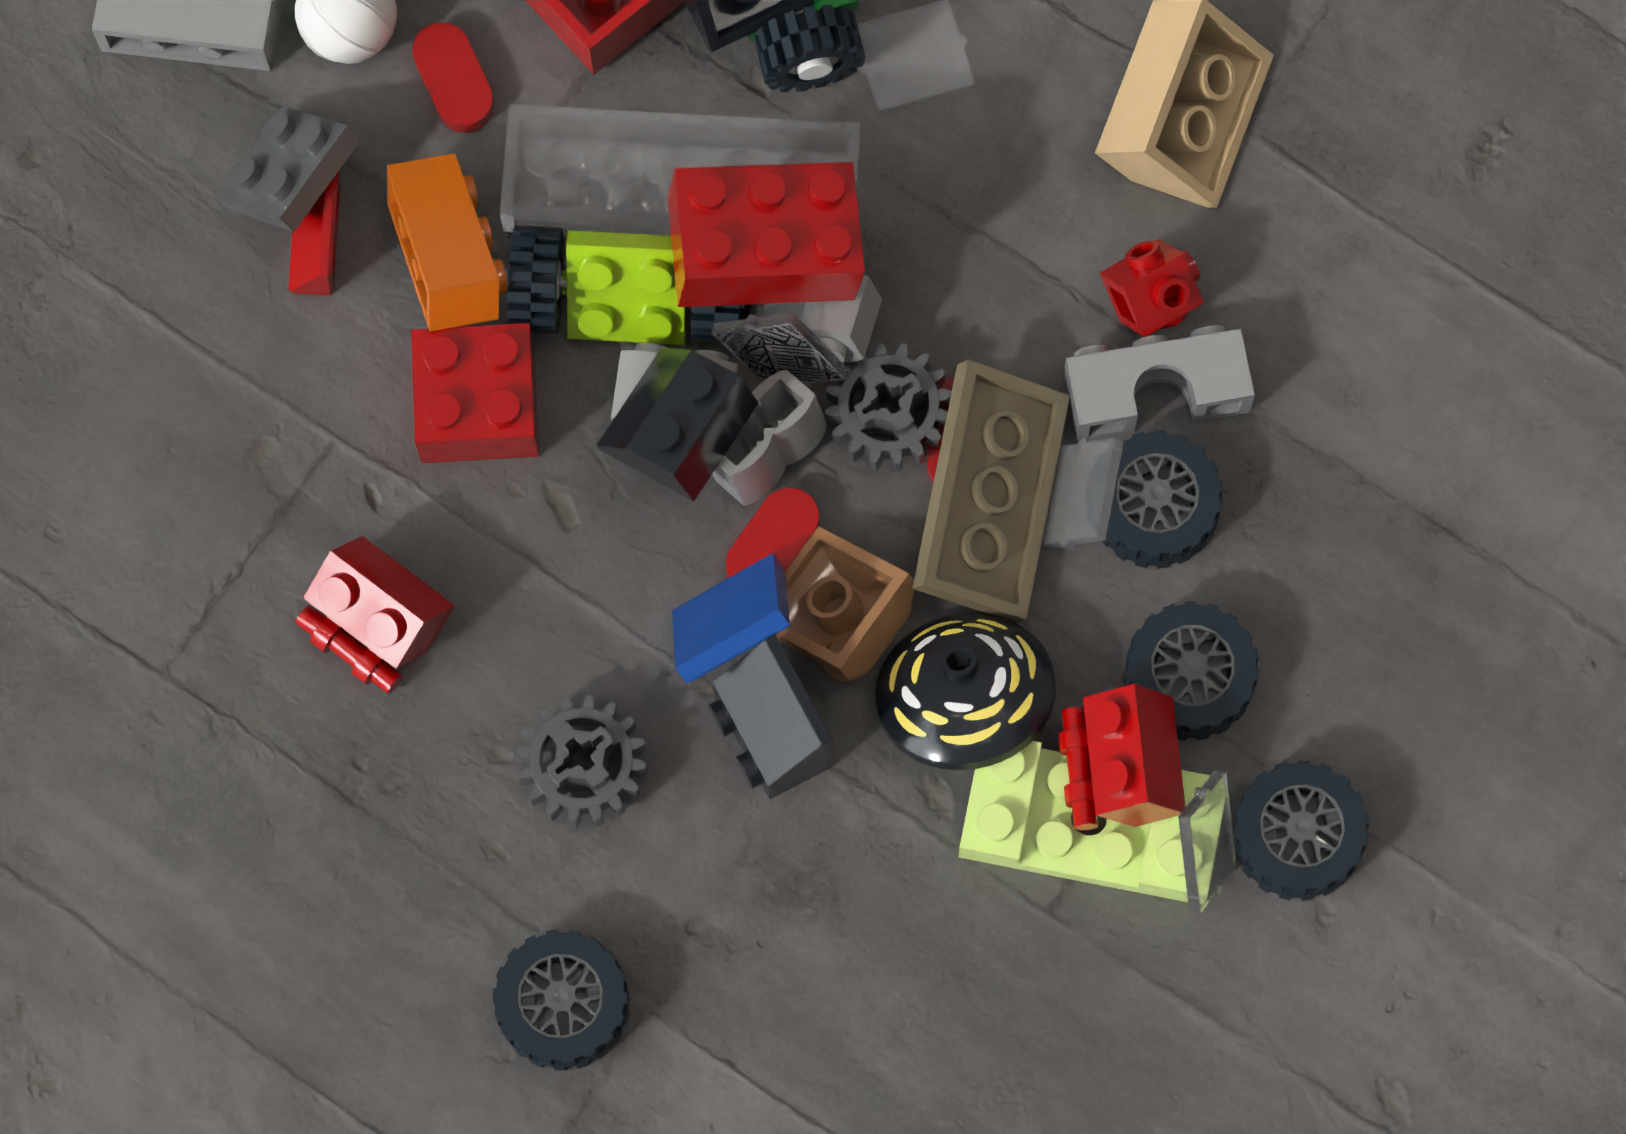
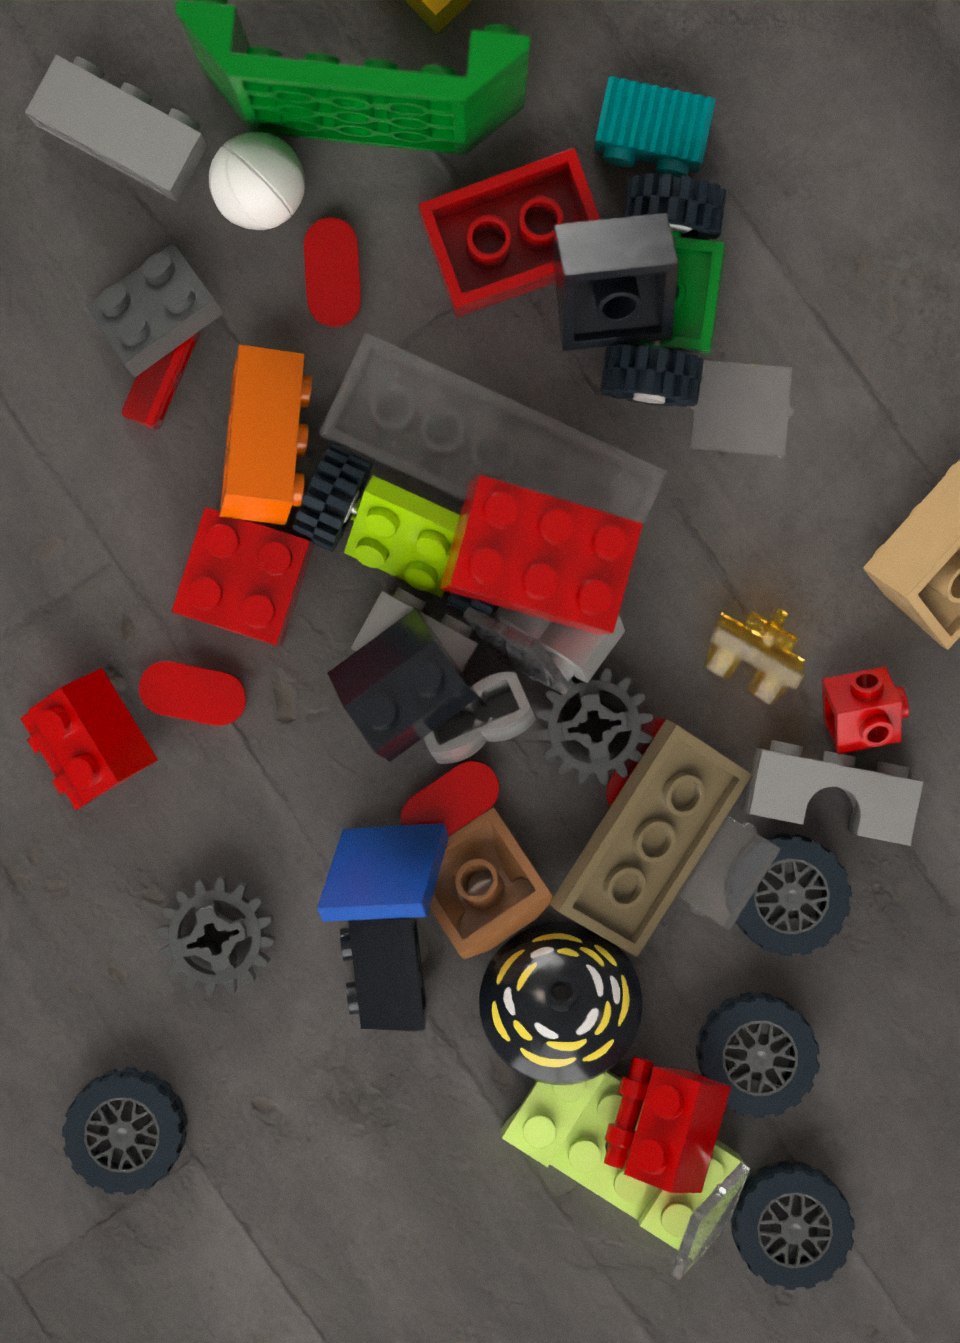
camera: 20 degrees right, 15 degrees up
(465, 532) = (193, 693): none -> red tile
(996, 275) = (775, 664): none -> clear yellow hips

